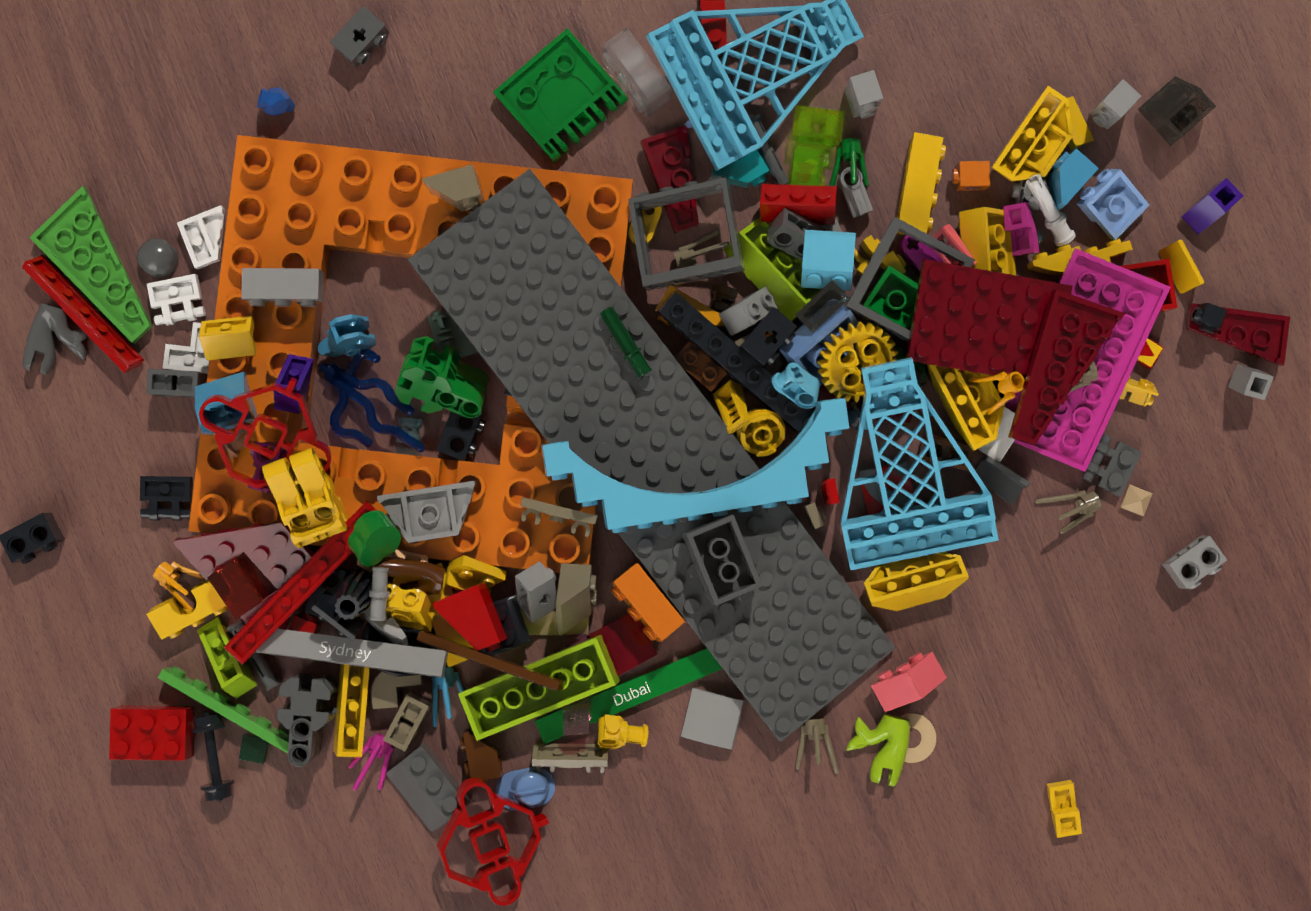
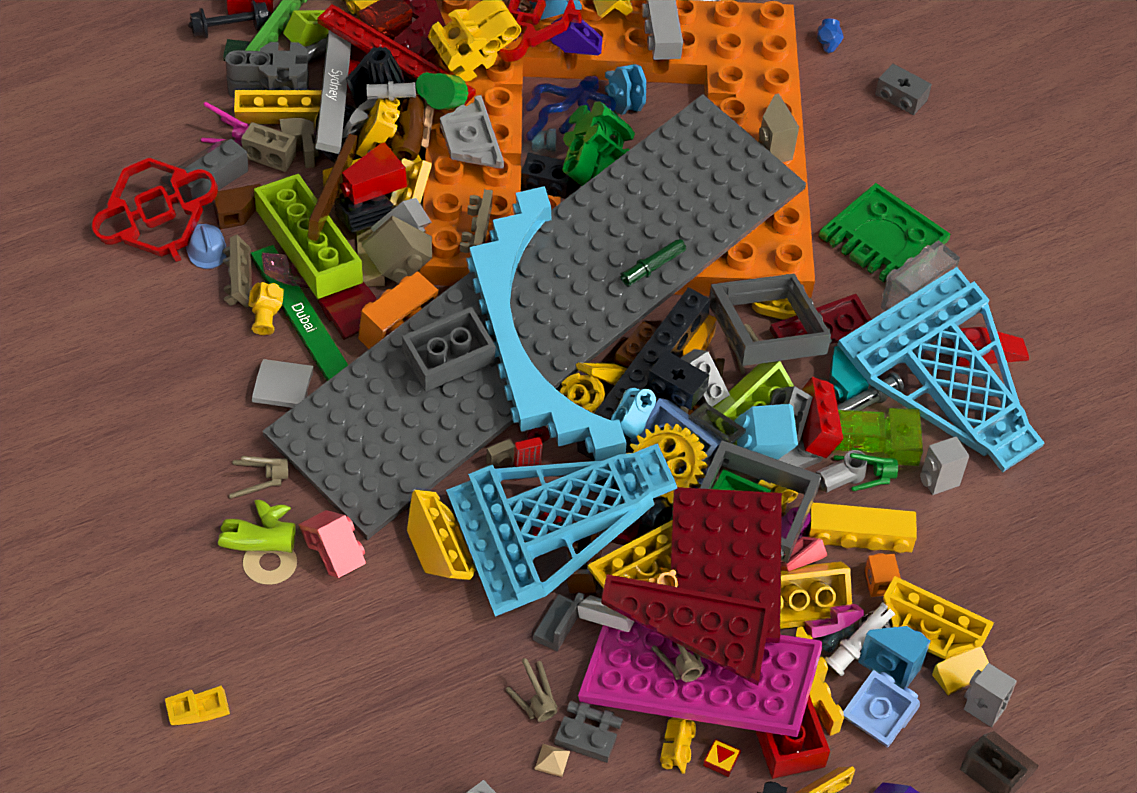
camera: 80 degrees right, 35 degrees down
(444, 683) = (310, 174): dark azure plant -> none

